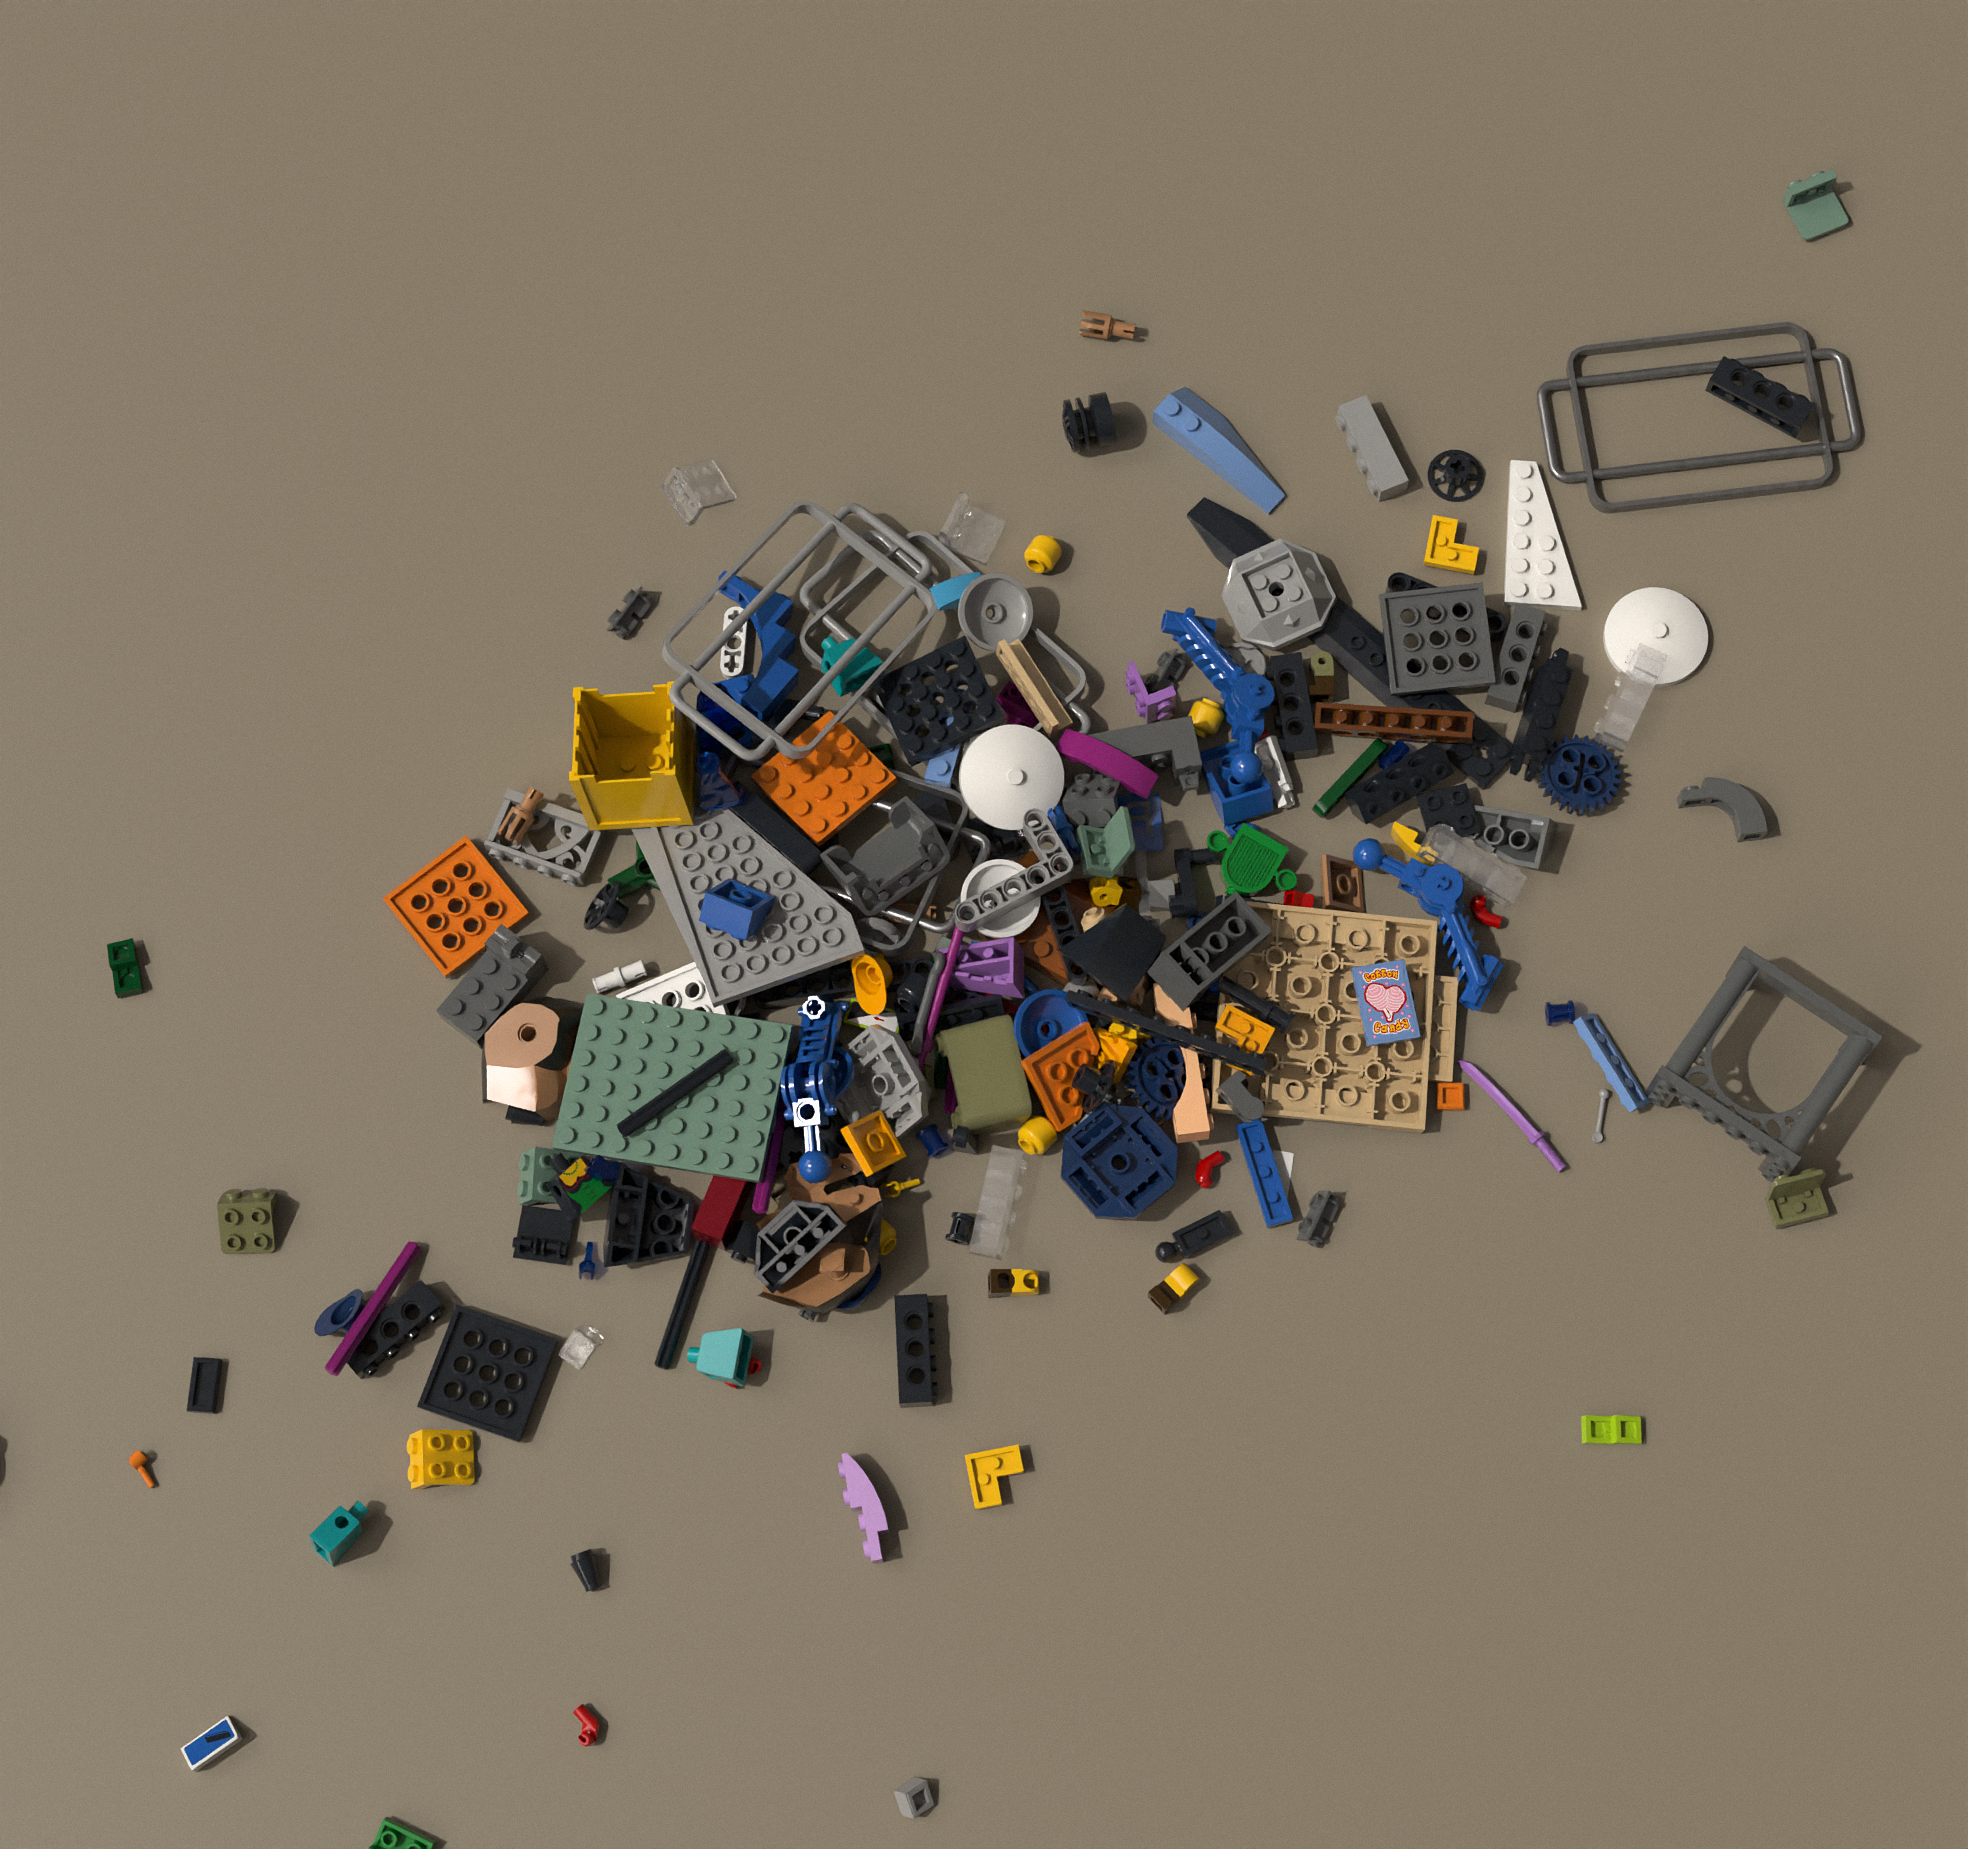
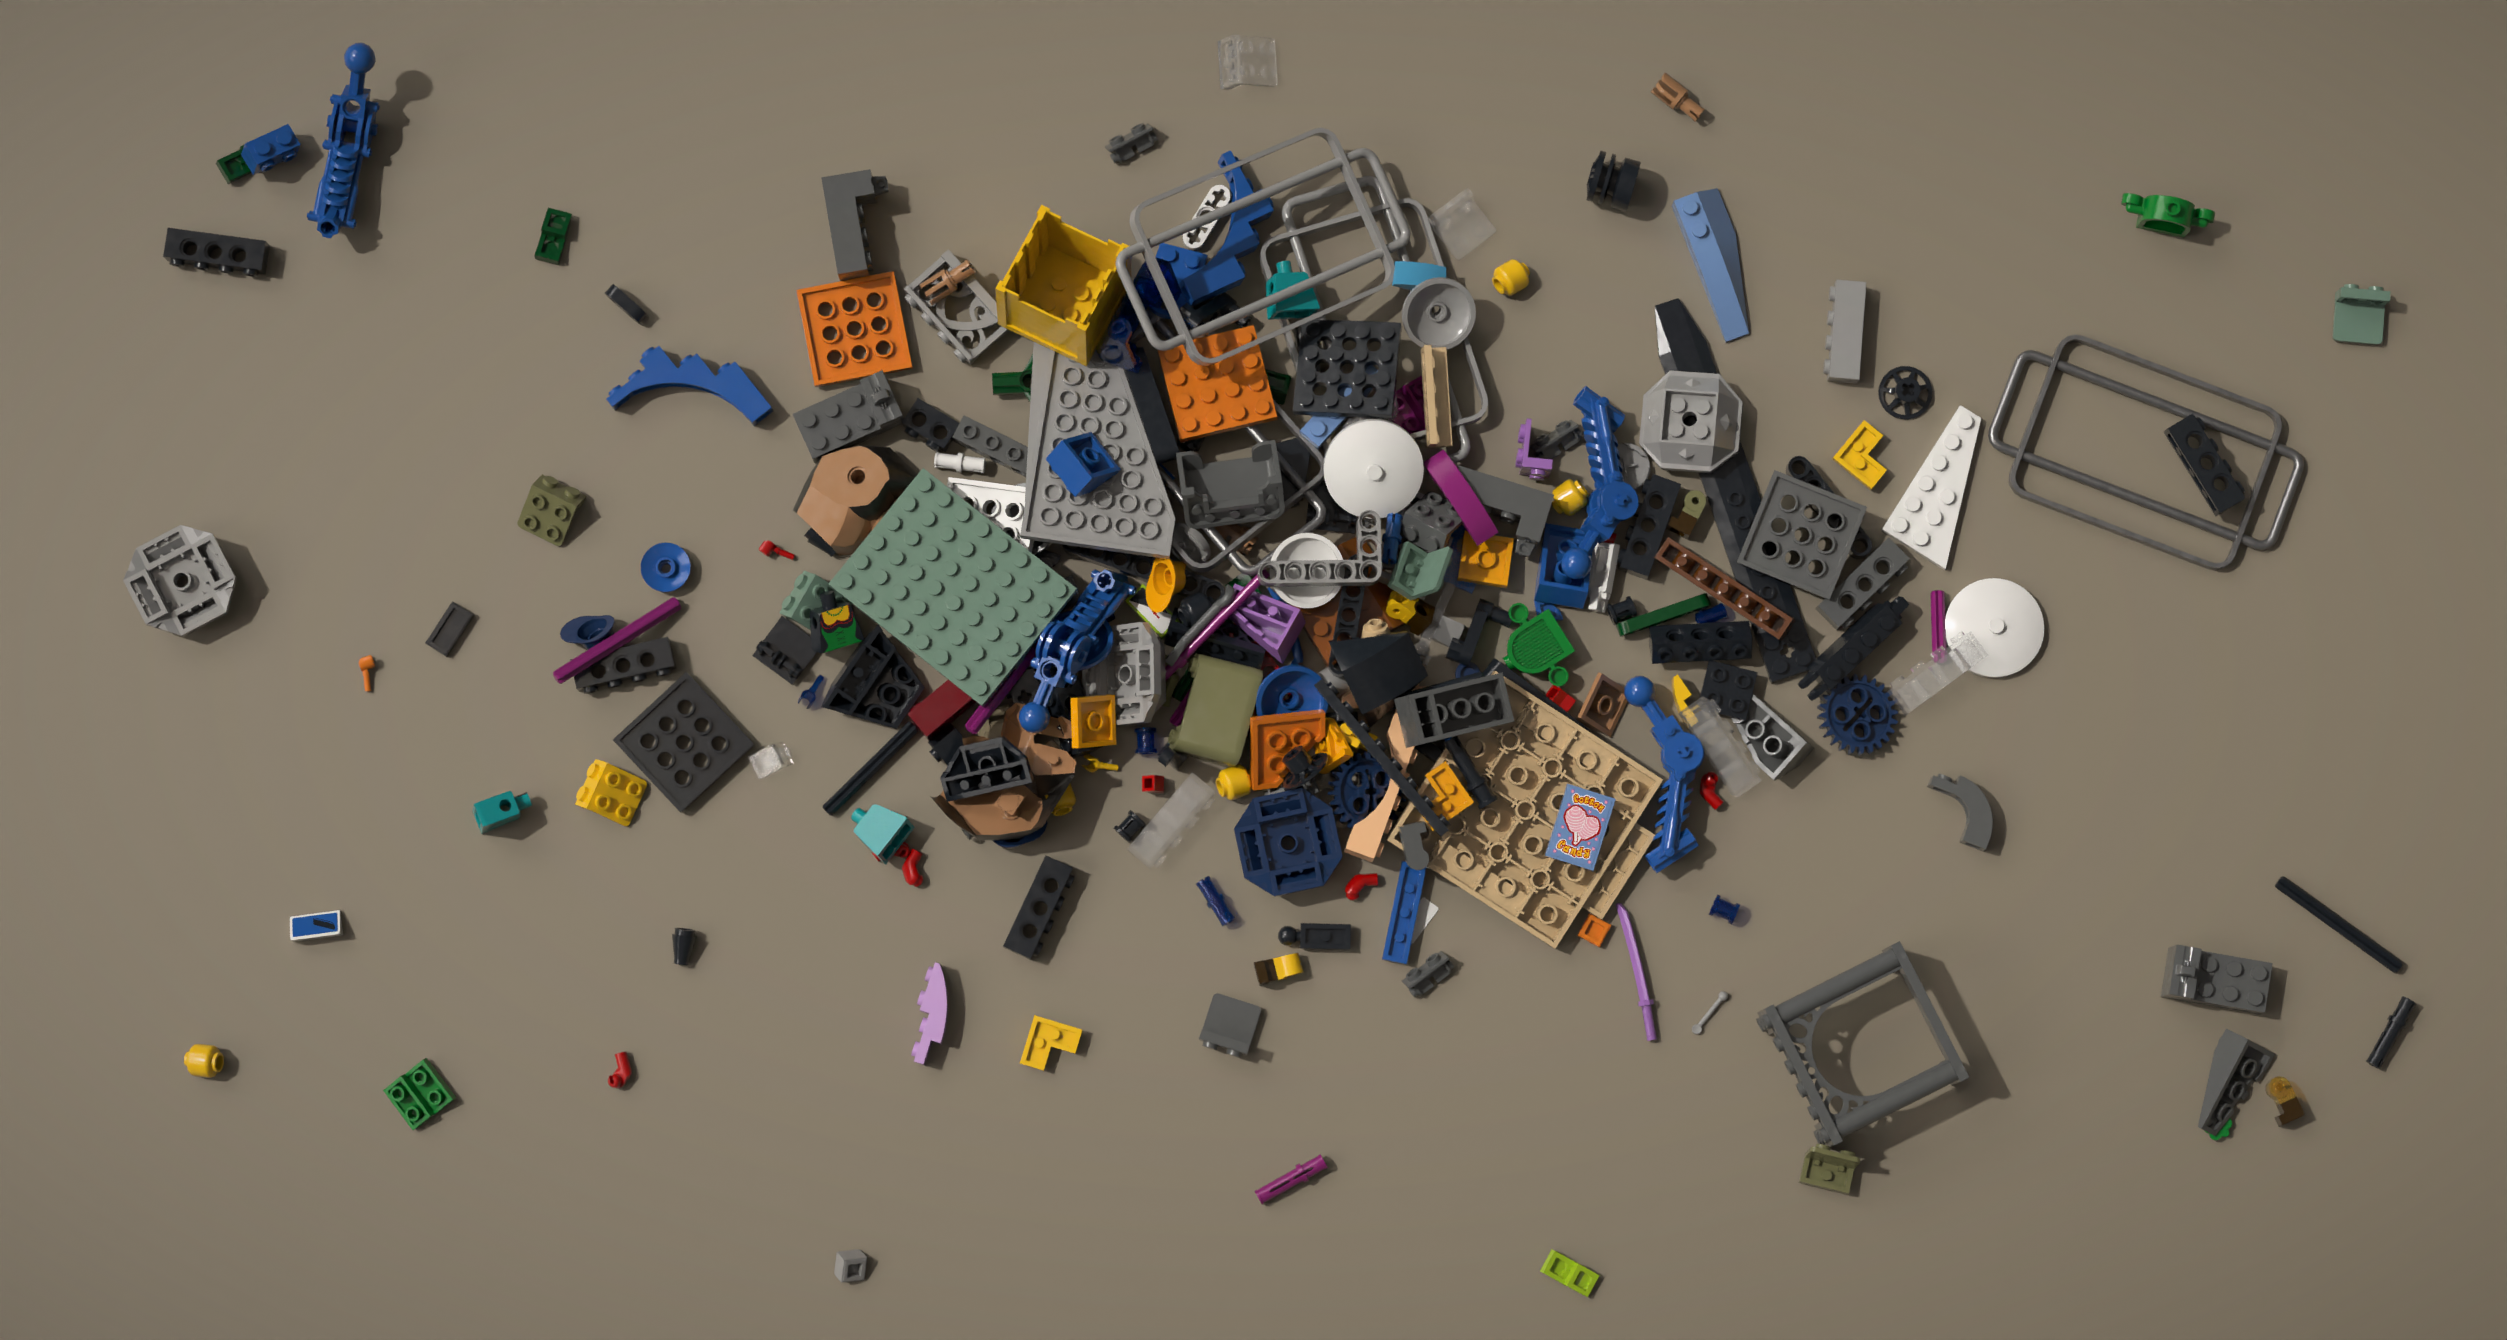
camera: 20 degrees right, 10 degrees up
(225, 993) = (625, 303): none -> black beam
(290, 1039) = (693, 373): none -> blue arch
(381, 1205) = (656, 558): none -> blue dish
(387, 791) = (844, 202): none -> dark grey hinge
(476, 1148) = (768, 547): none -> red hand
(576, 949) = (934, 420): none -> black brick
(602, 1170) = (859, 623): clear blue piece -> none
(609, 909) = (980, 400): black wheel -> none
(643, 944) = (992, 445): none -> dark grey brick
(674, 1093) = (951, 595): black axle -> none
(771, 1380) = (910, 870): none -> red arm
(966, 1175) = (1153, 784): none -> red piece
(1012, 1282) = (1148, 895): leg -> none
(1079, 1255) = (1215, 901): none -> clear blue pin
(1157, 1365) = (1230, 1025): none -> dark grey bracket
(1160, 813) = (1485, 563): none -> light orange plate
(1309, 793) = (1621, 610): none -> black bush
(1313, 1454) = (1318, 1165): none -> magenta pin
(1596, 204) = (2166, 213): none -> green piece
(1601, 655) = (1938, 619): none -> magenta axle
(1611, 1062) = (1743, 973): medium blue plate -> none

